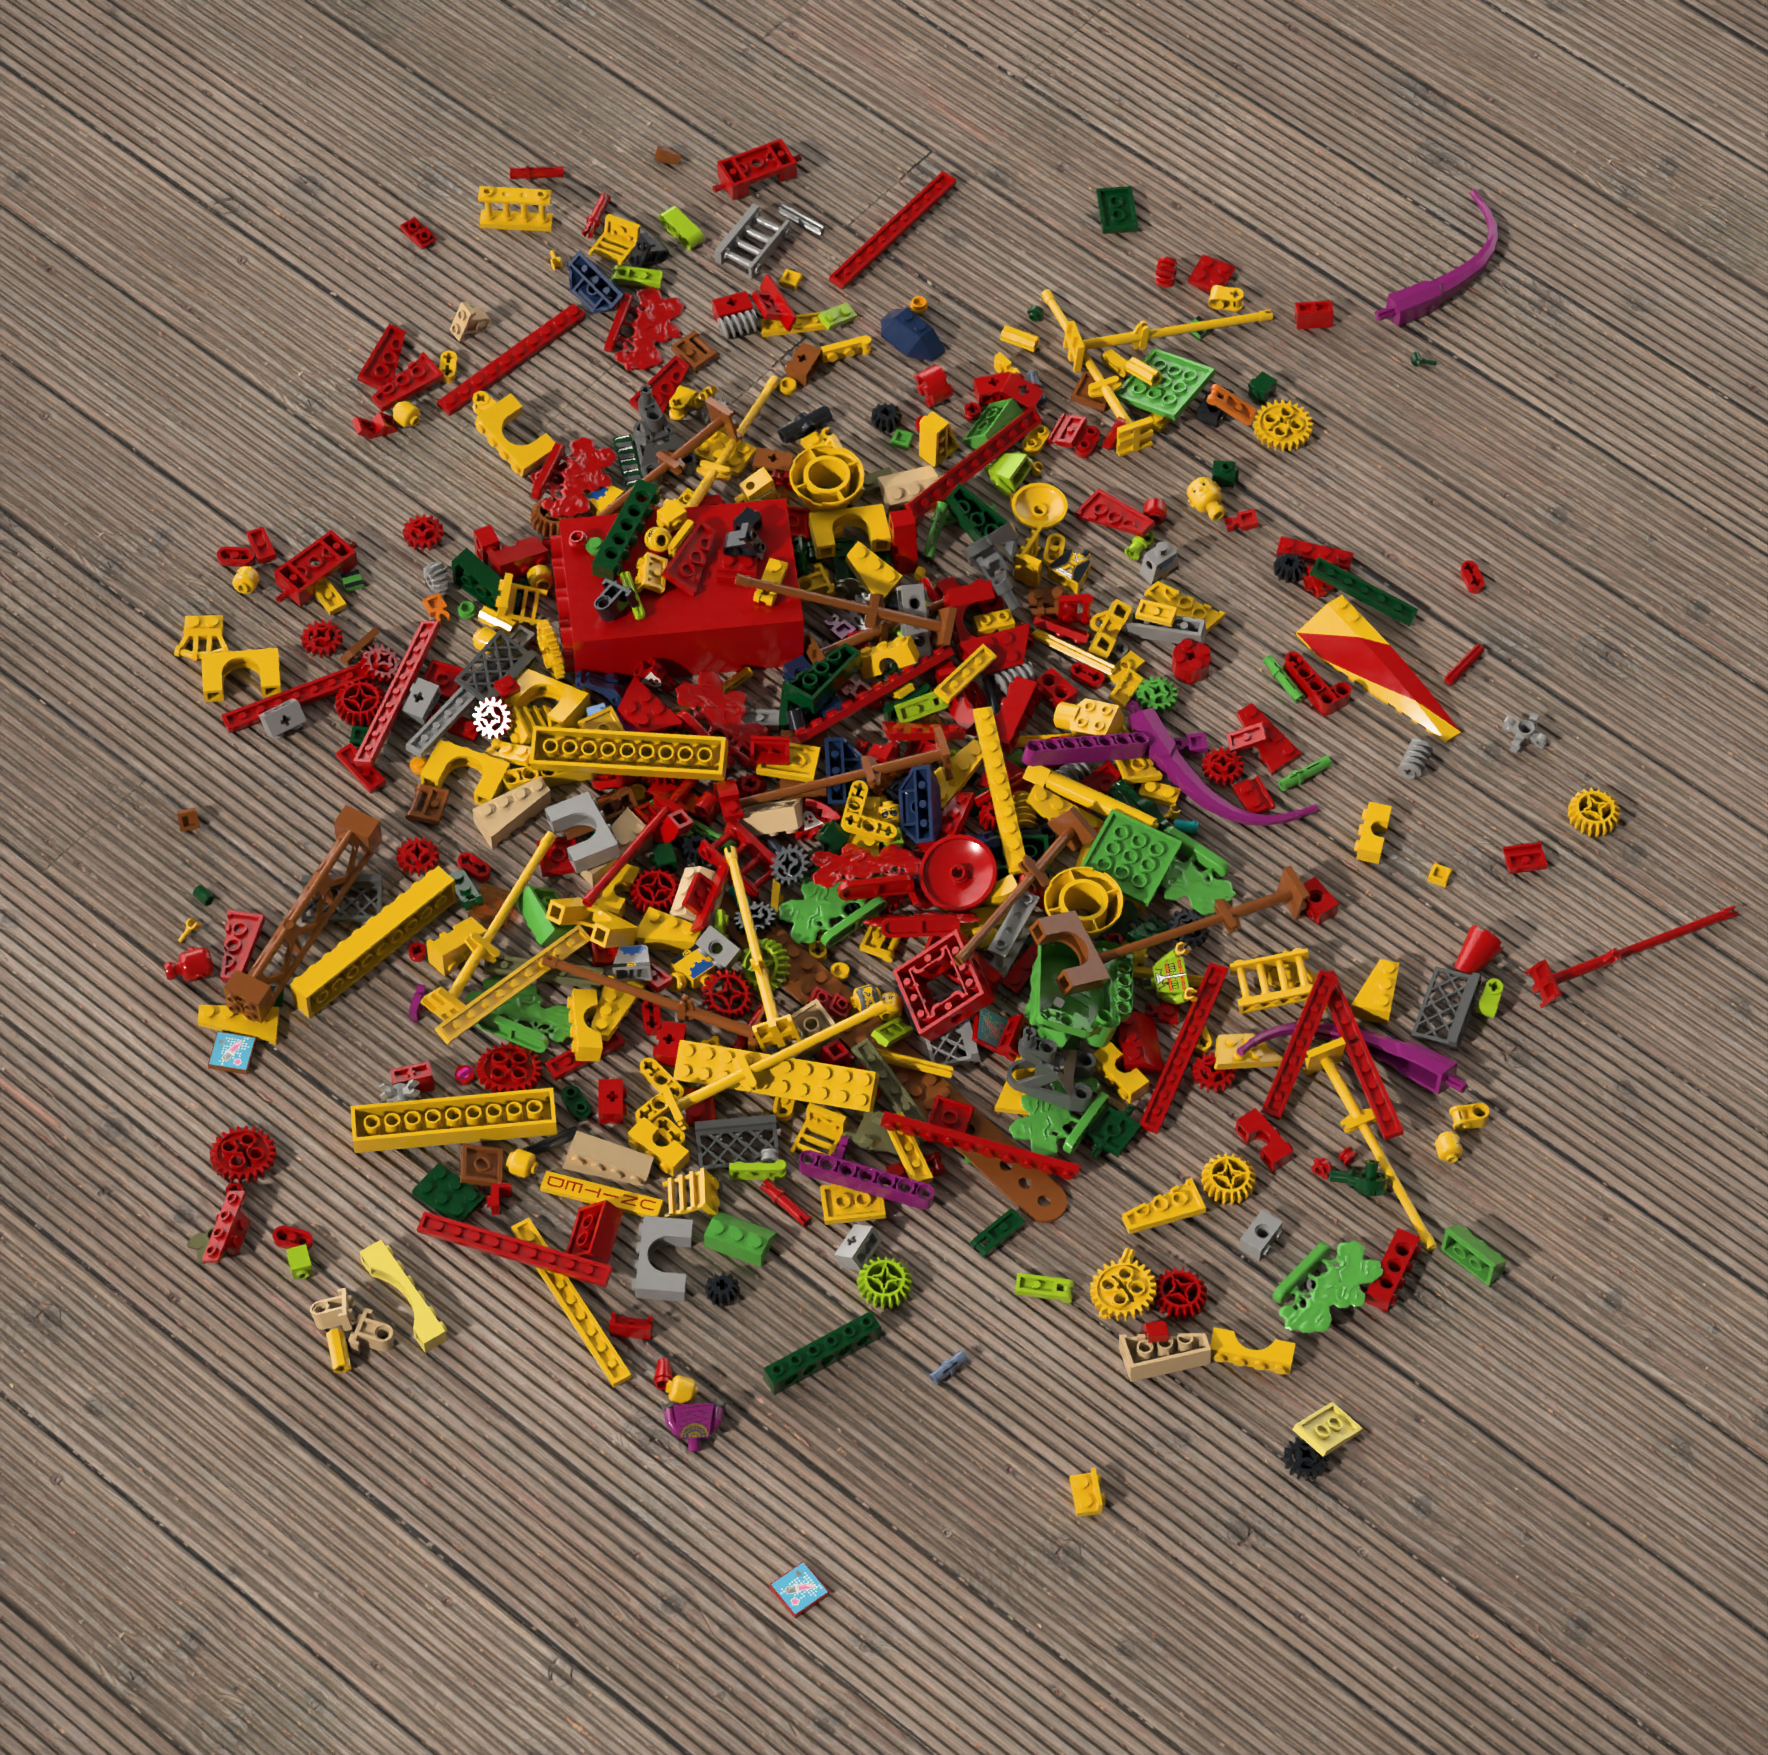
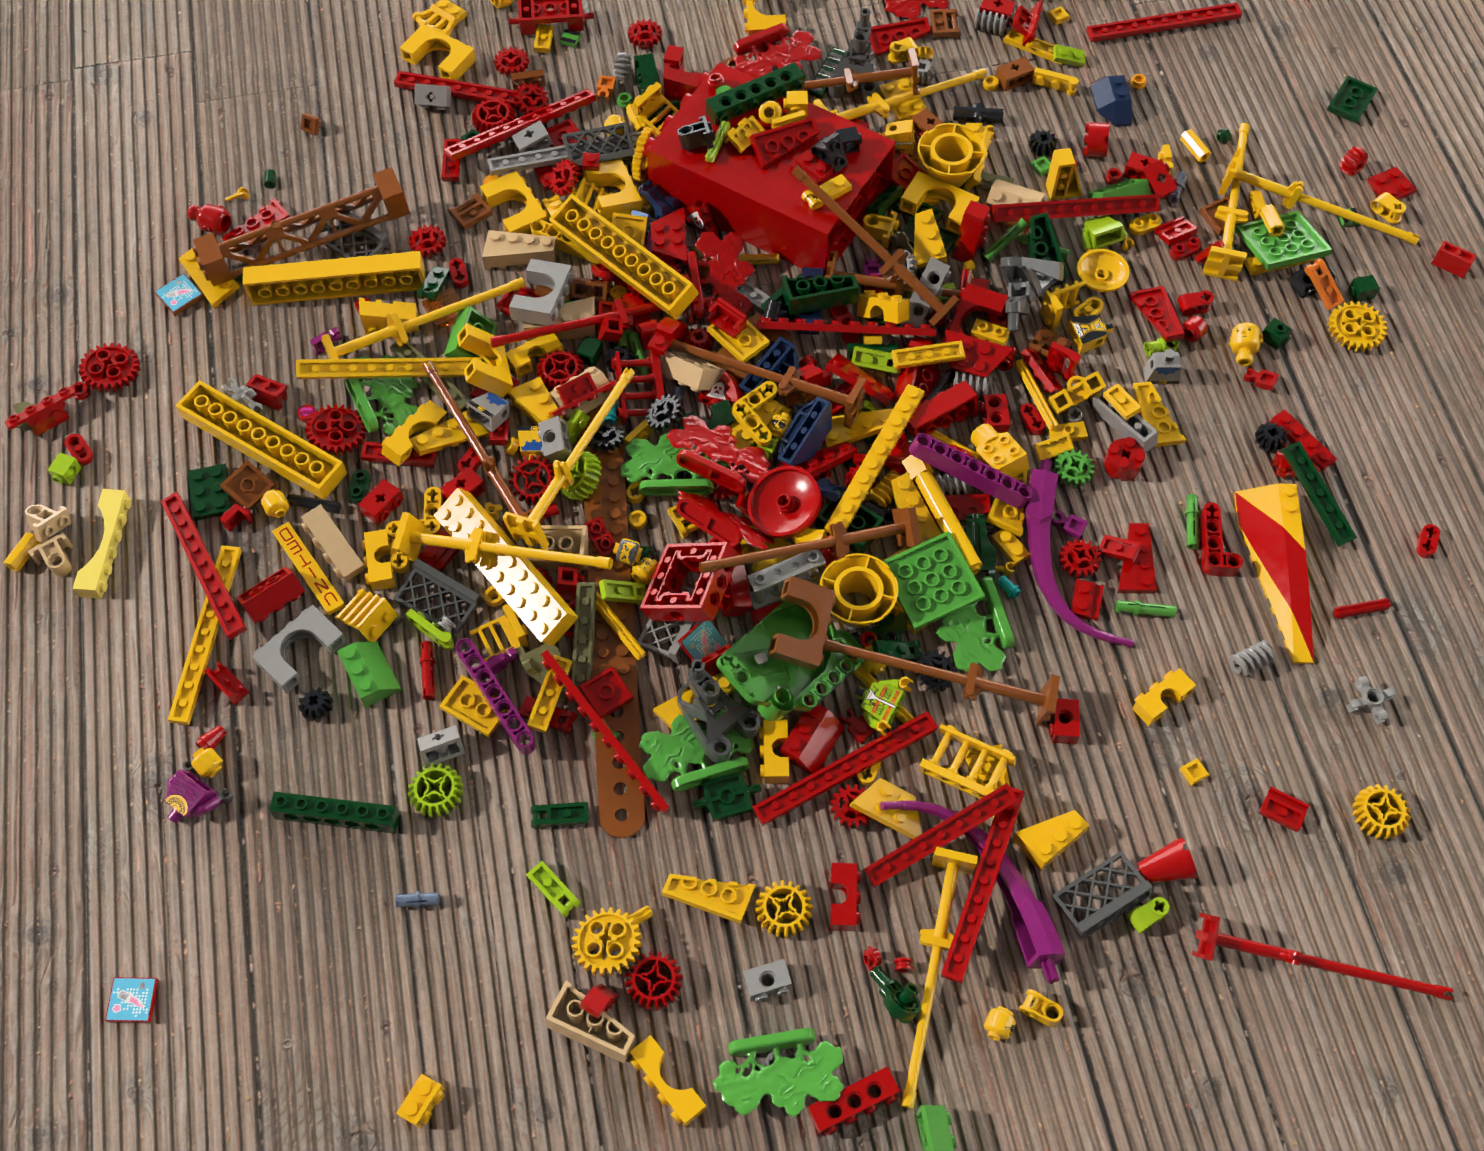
camera: 40 degrees right, 5 degrees up
(1137, 487) = (1193, 304): none -> red piece

